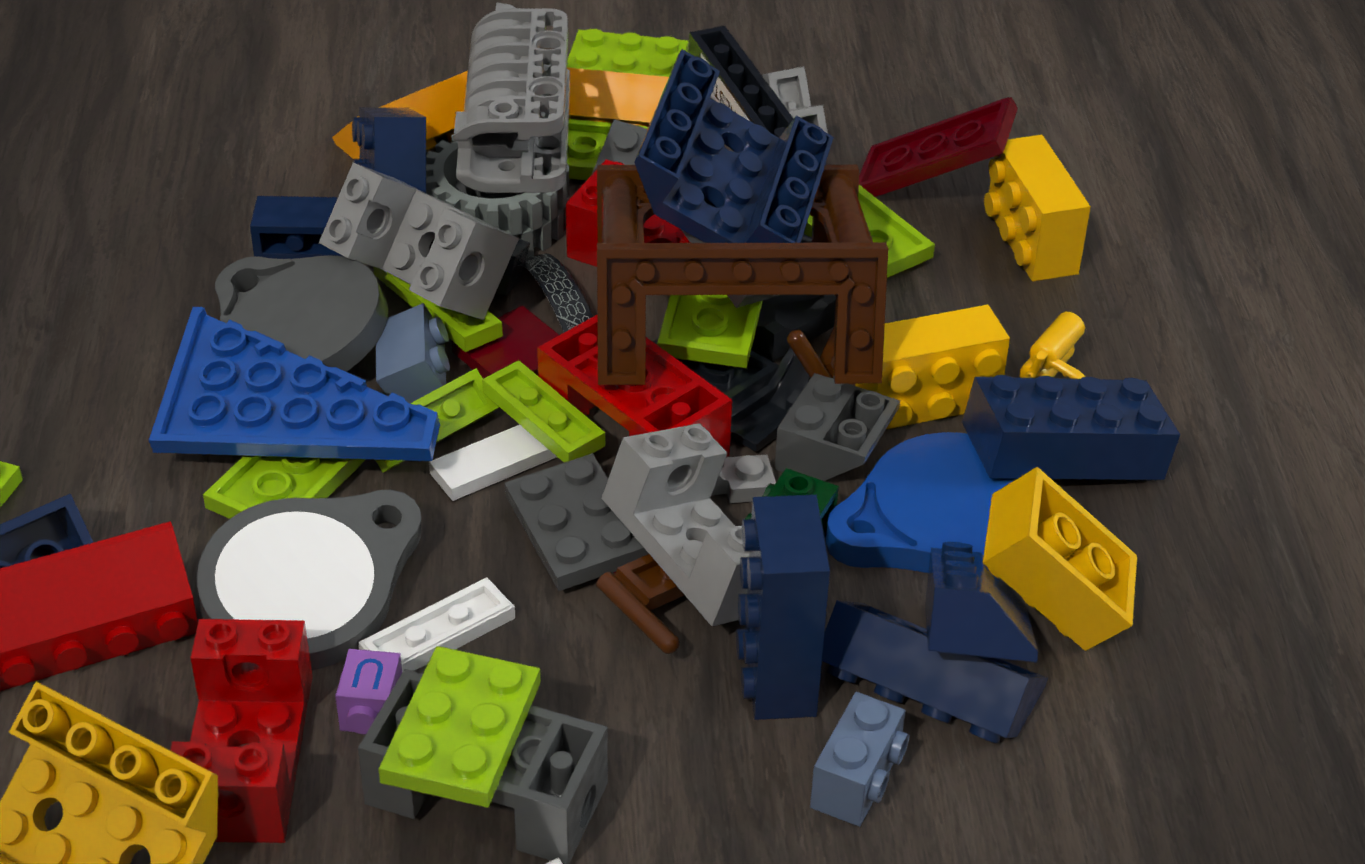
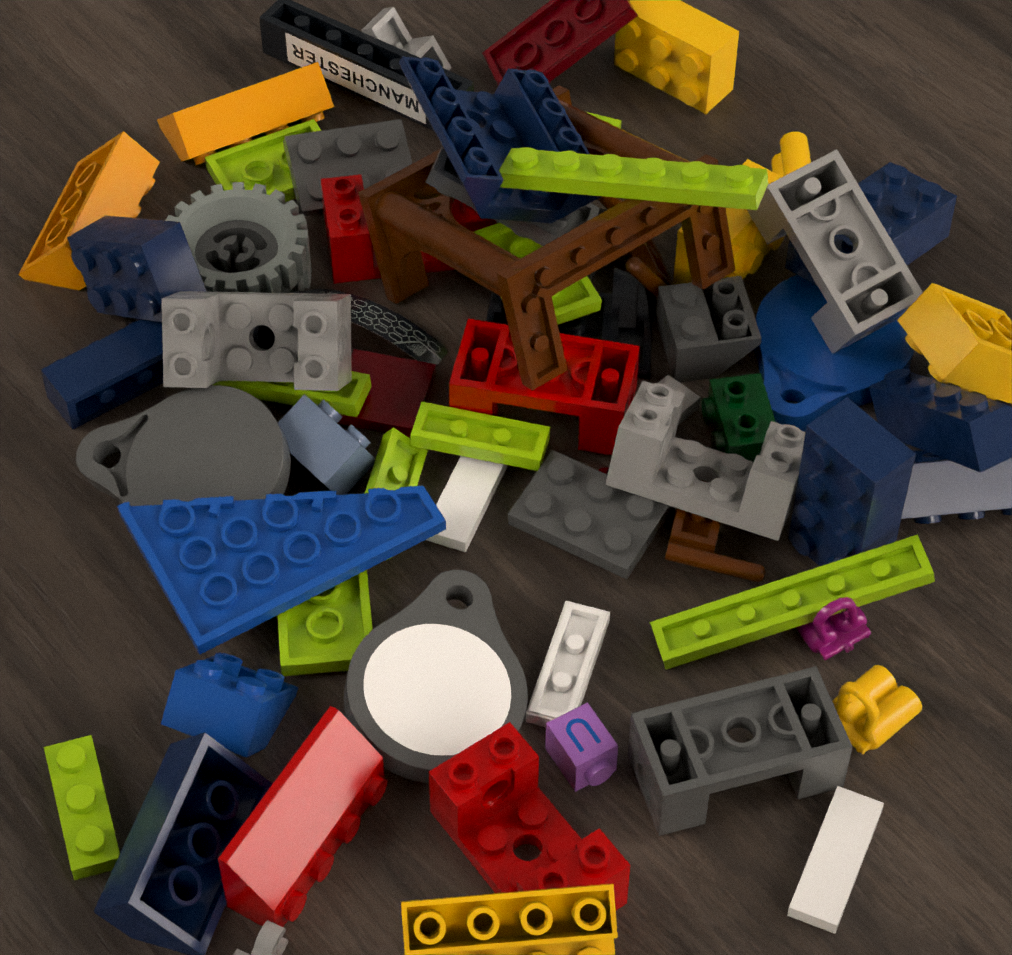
camera: 35 degrees left, 10 degrees up
(132, 491) = (228, 703): none -> blue slope
(460, 726) = (724, 731): lime plate -> none
(515, 103) = (213, 161): light grey piece -> none
(625, 52) = (201, 68): lime plate -> none
(656, 815) = (875, 708): none -> yellow piece
(674, 678) = (791, 601): none -> lime plate
(700, 713) = (838, 632): none -> magenta piece
(796, 229) = (634, 178): none -> lime plate
(858, 759) = (965, 581): sand blue brick -> none
(979, 445) = (860, 287): none -> light grey plate

